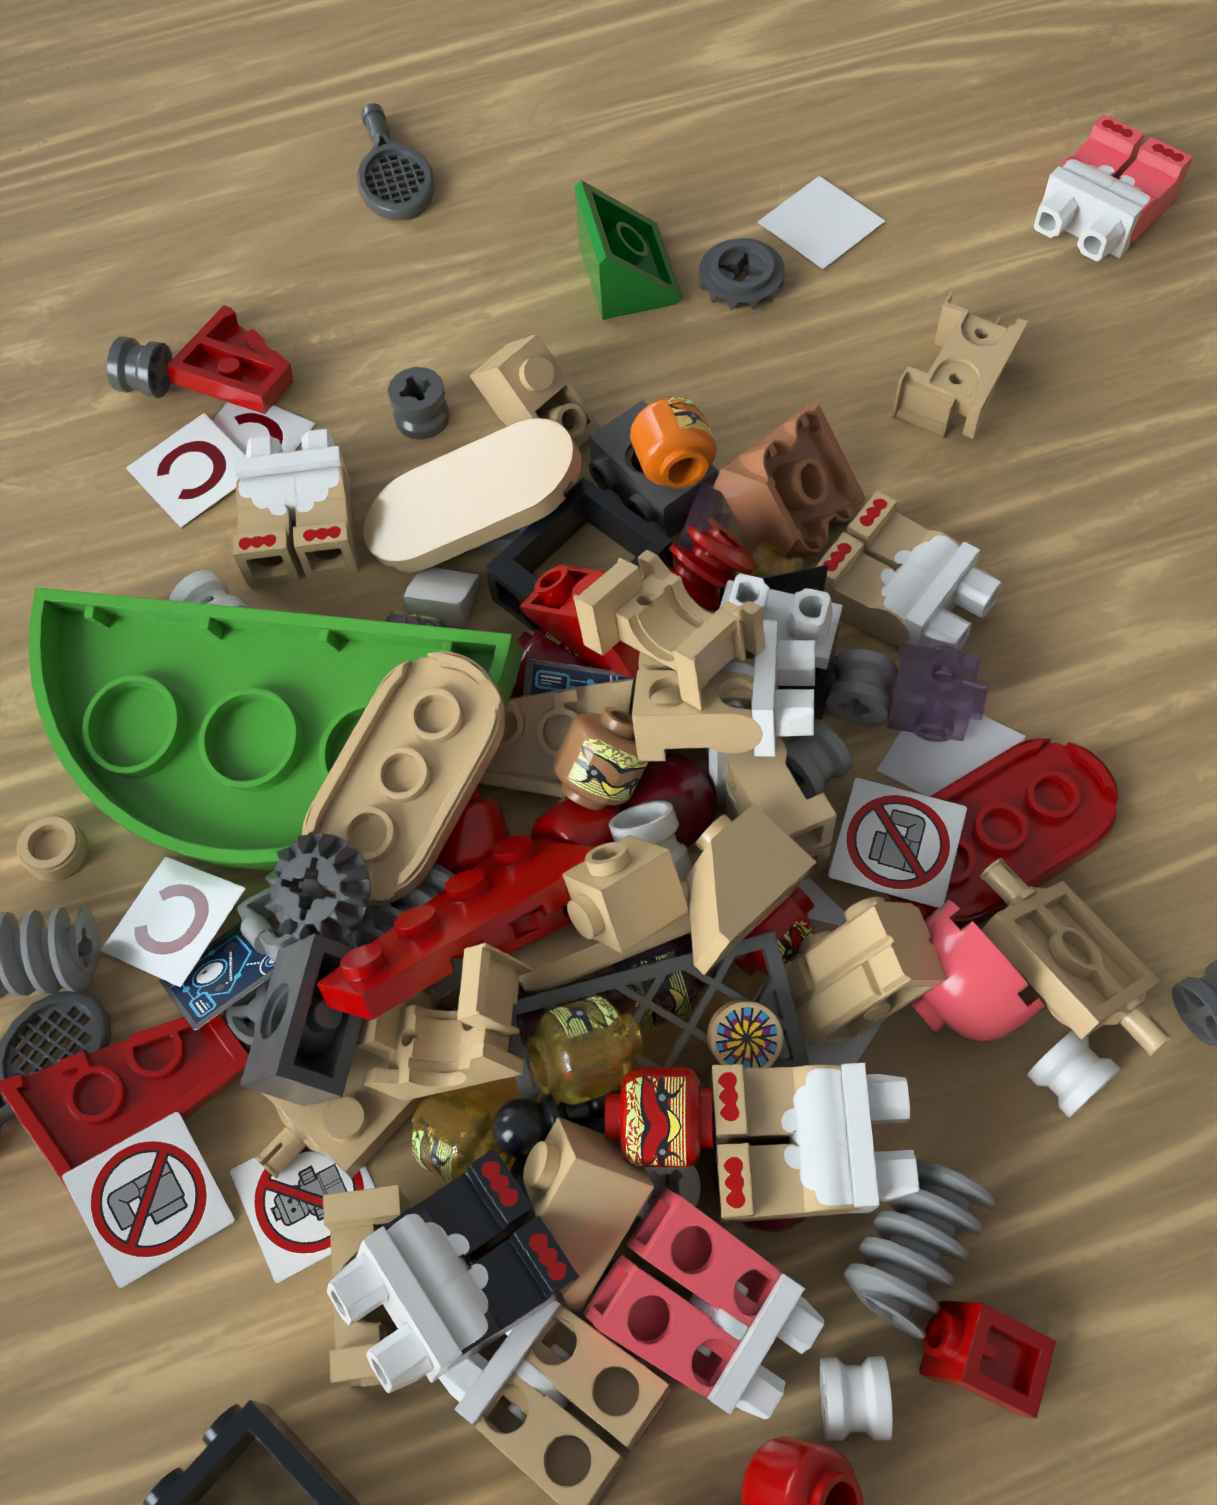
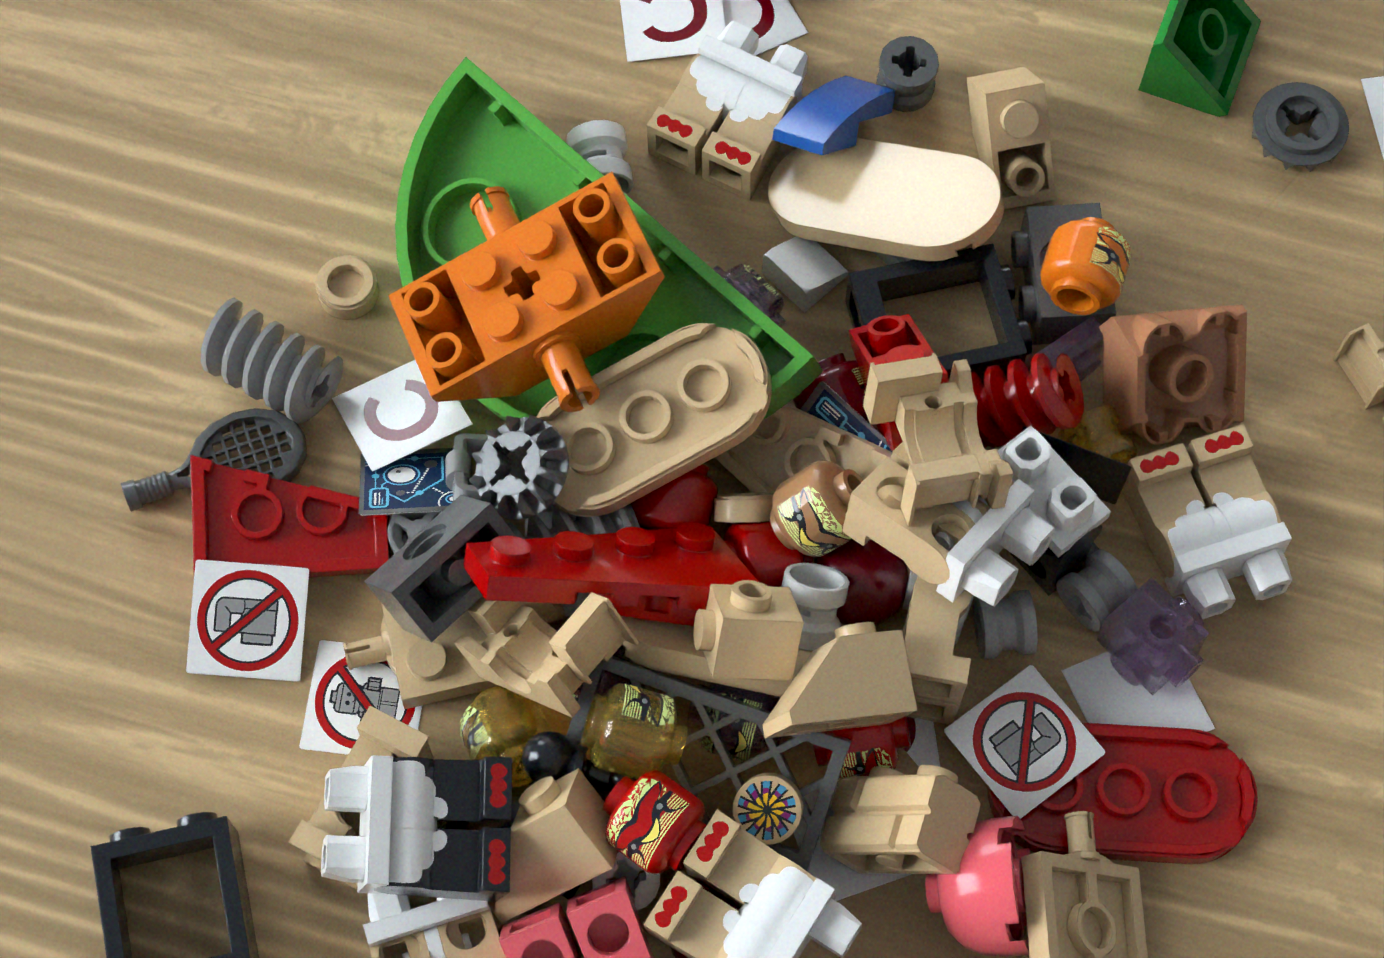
camera: 30 degrees right, 5 degrees up
(230, 739) = (531, 297): none -> orange slope
(383, 462) = (831, 115): none -> blue slope
(533, 803) = (743, 507): none -> tan tile

